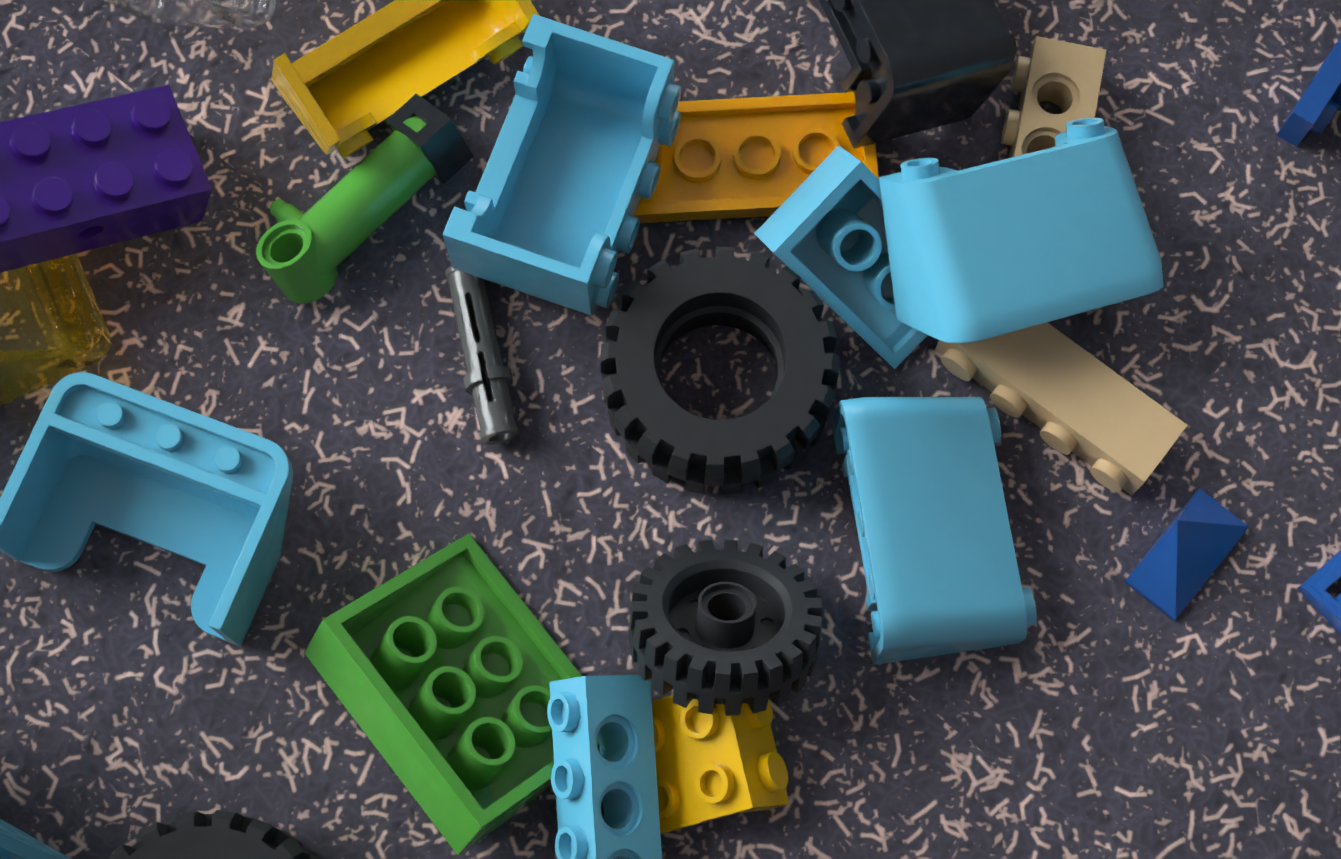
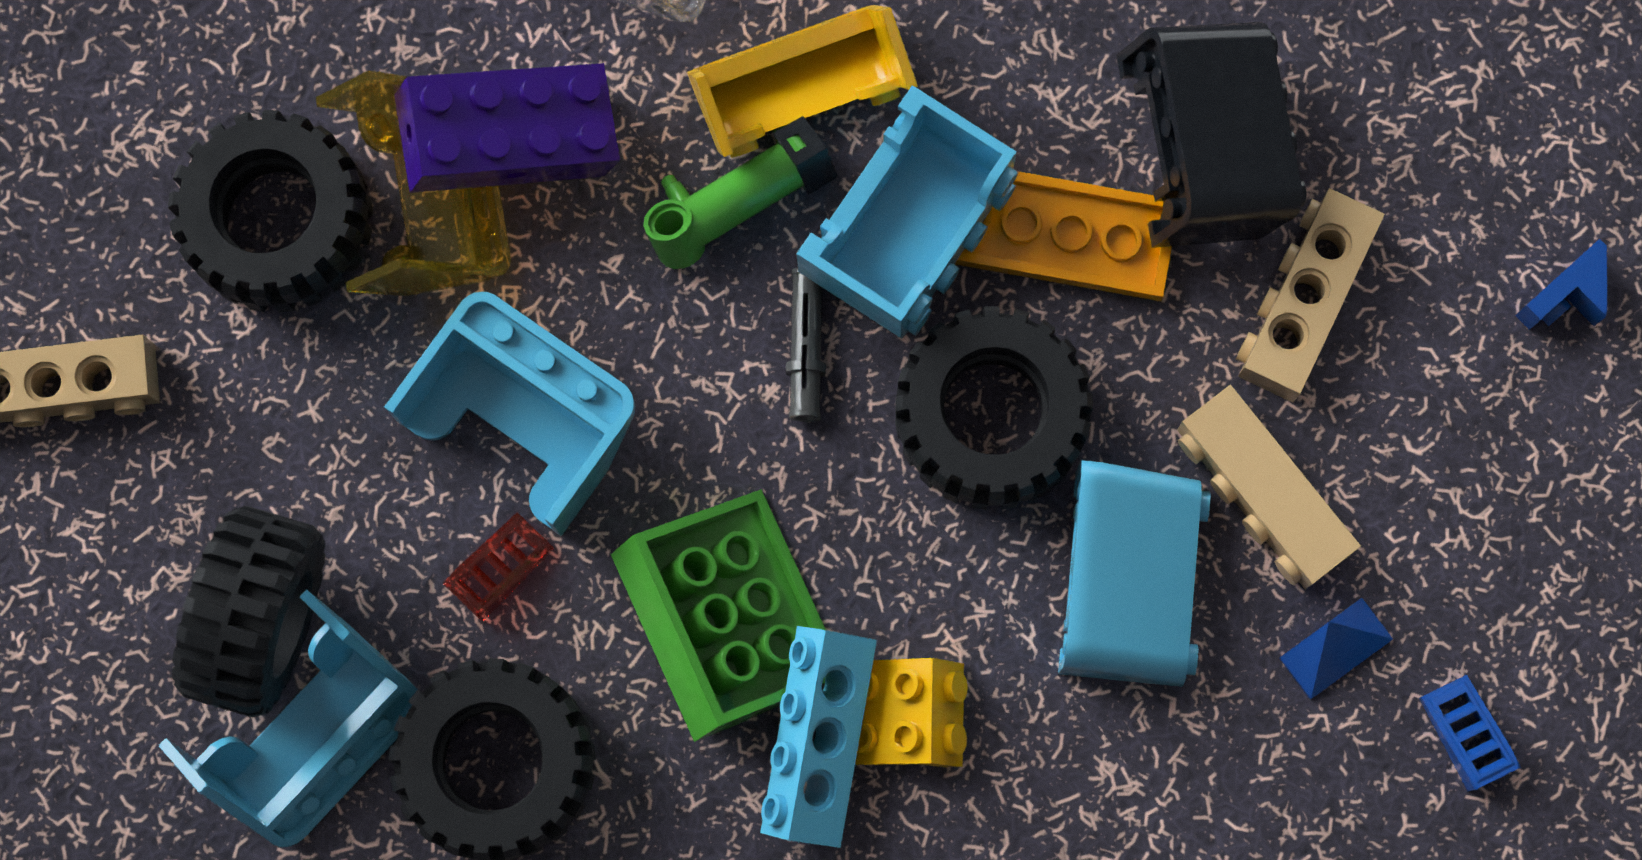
camera: 20 degrees right, 5 degrees up
(191, 713) = (497, 593): none -> clear red slope
(725, 627) = (945, 616): black wheel -> none
(838, 246) = (1137, 342): medium azure slope -> none
(1018, 237) = (1263, 362): medium azure windscreen -> none

